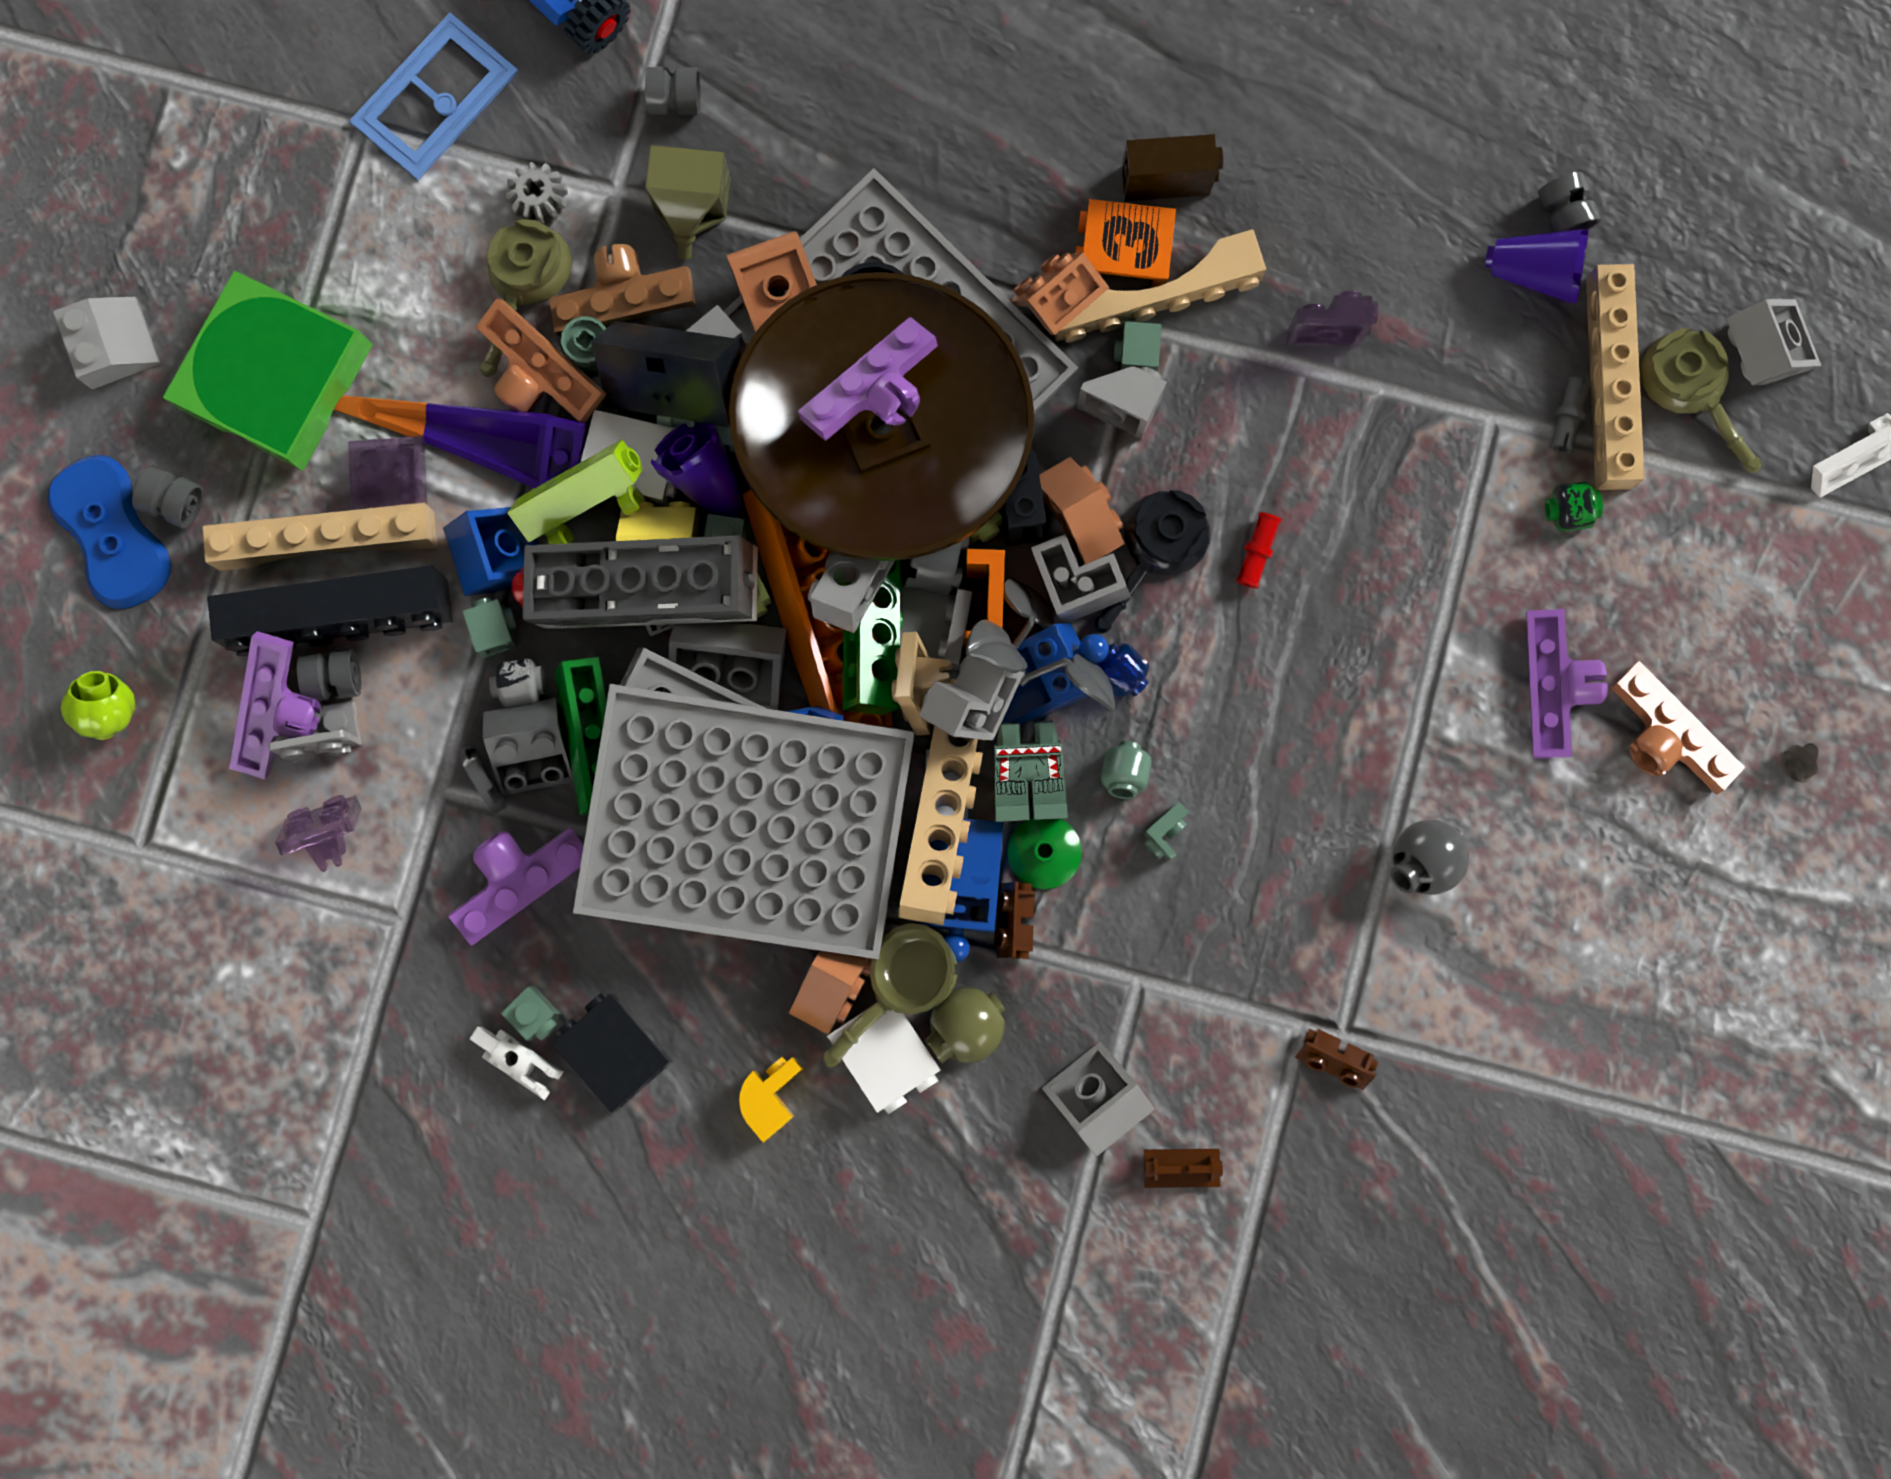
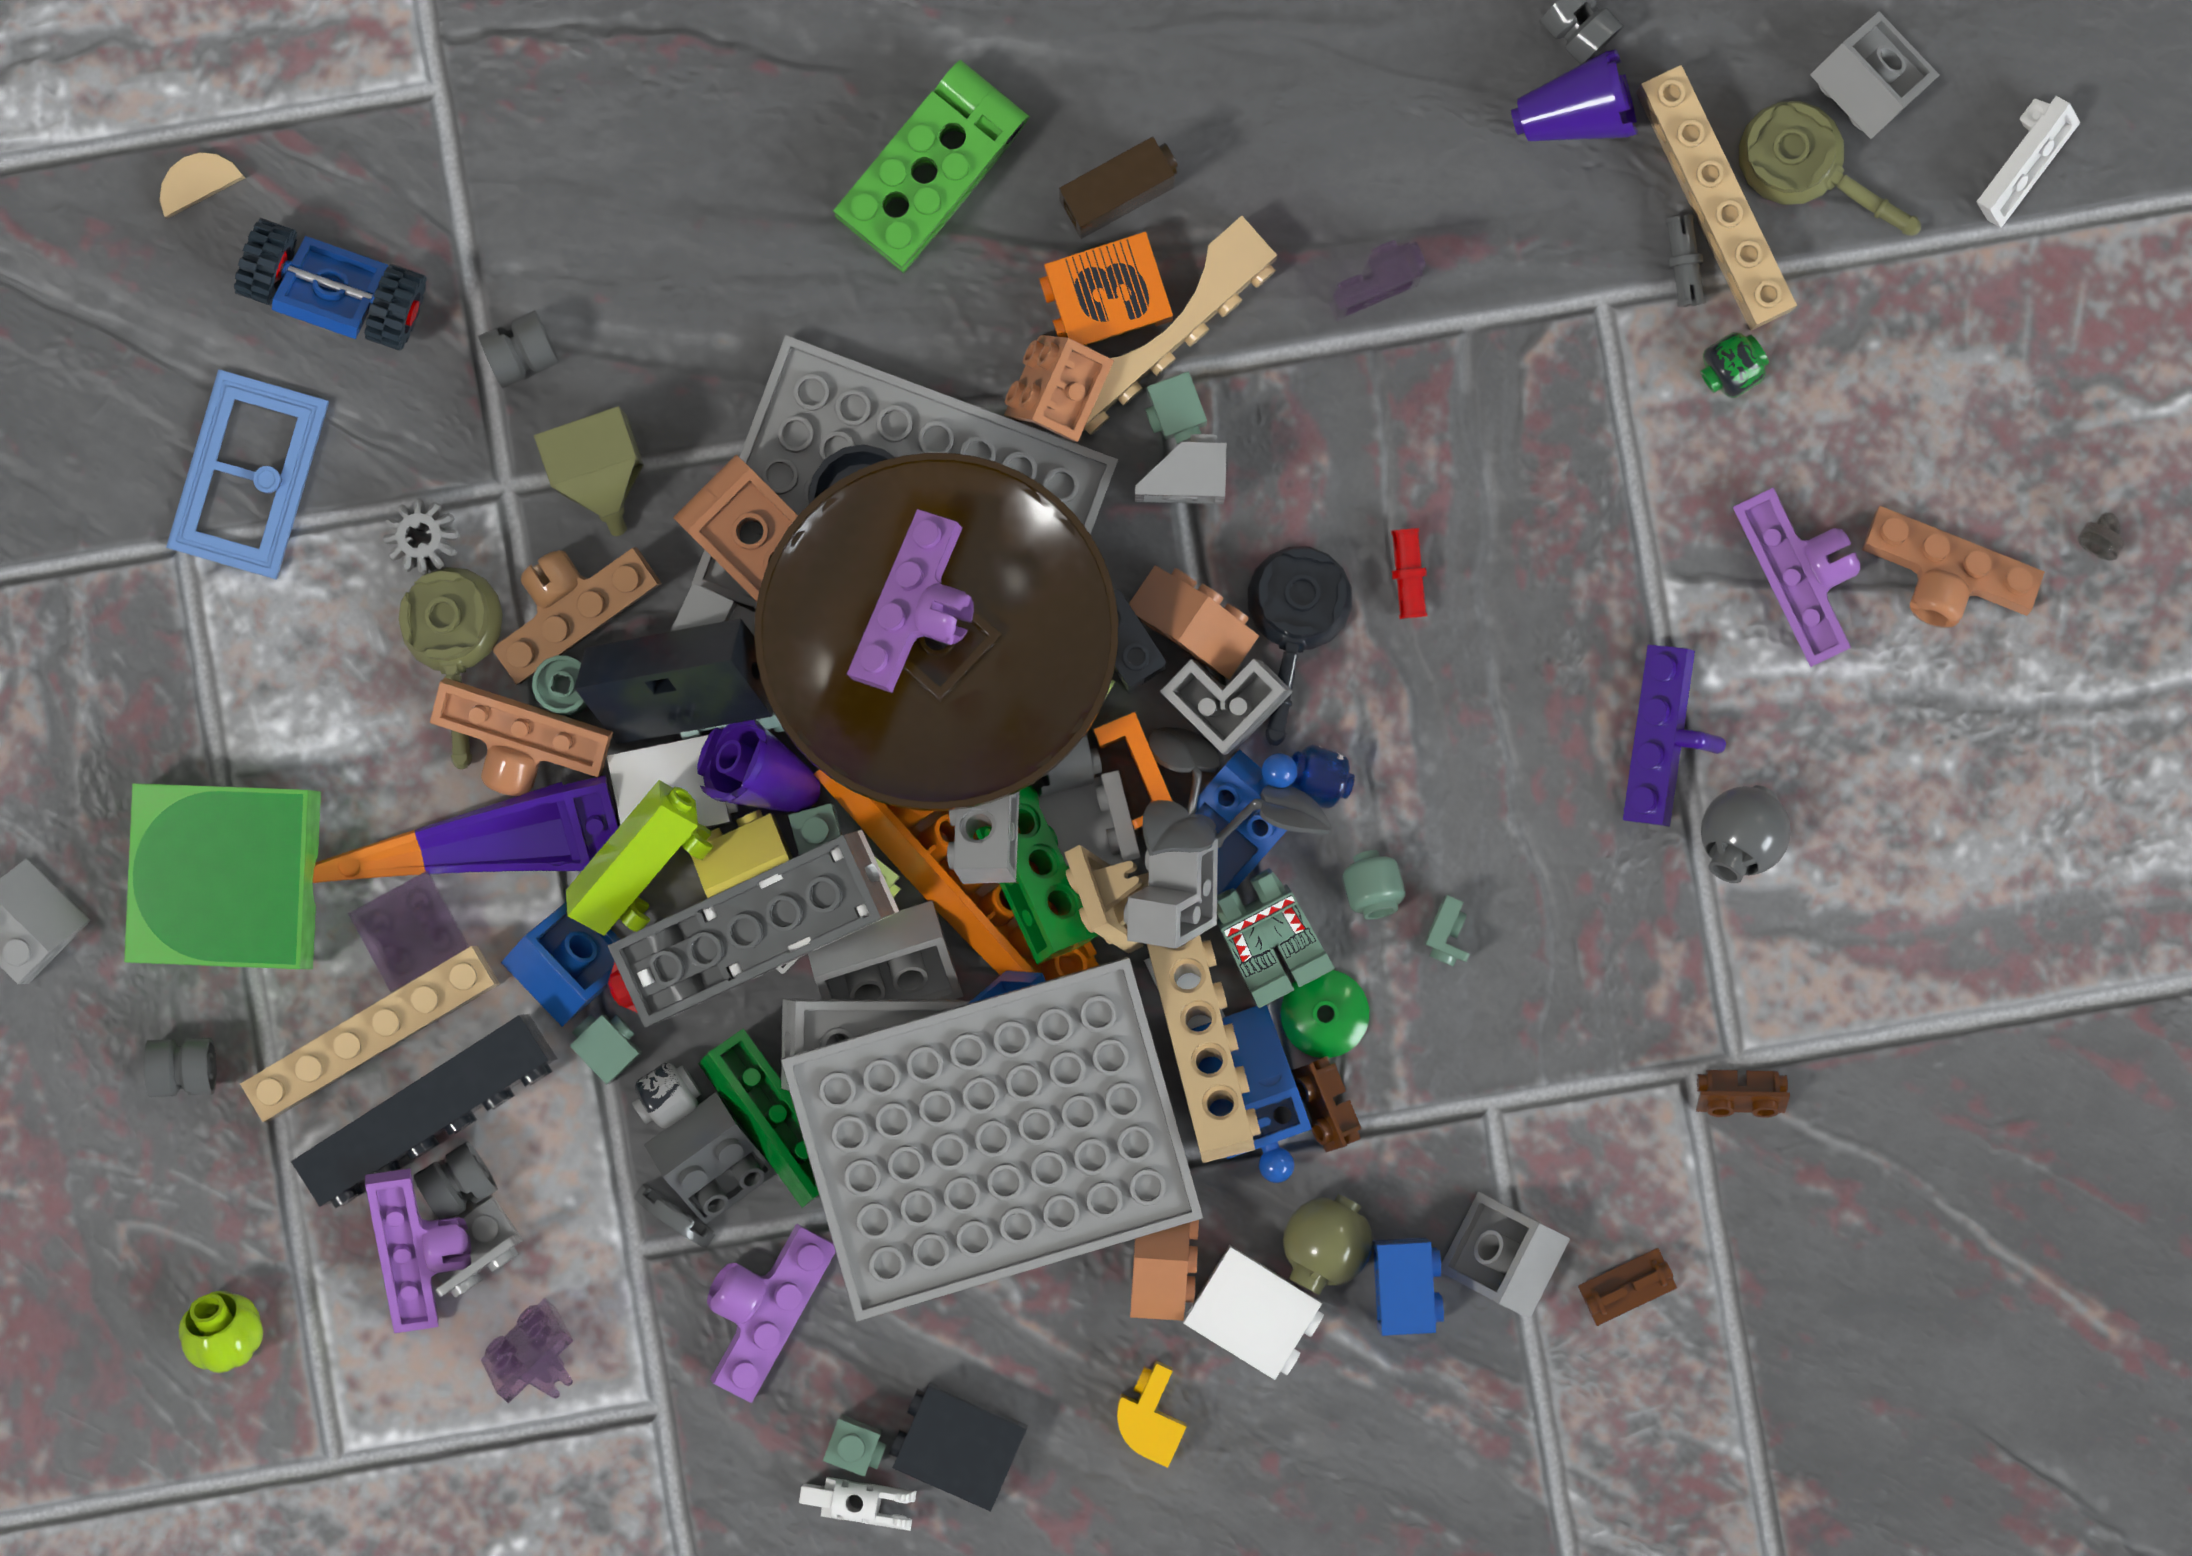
camera: 20 degrees left, 5 degrees up
(120, 555) = (100, 1113): blue plate -> none
(908, 977) = (1242, 1223): olive piece -> none
(1011, 1087) = (1406, 1286): none -> blue brick
(1078, 60) = (960, 104): none -> bright green hinge
(1396, 757) = (1661, 735): none -> dark purple plate

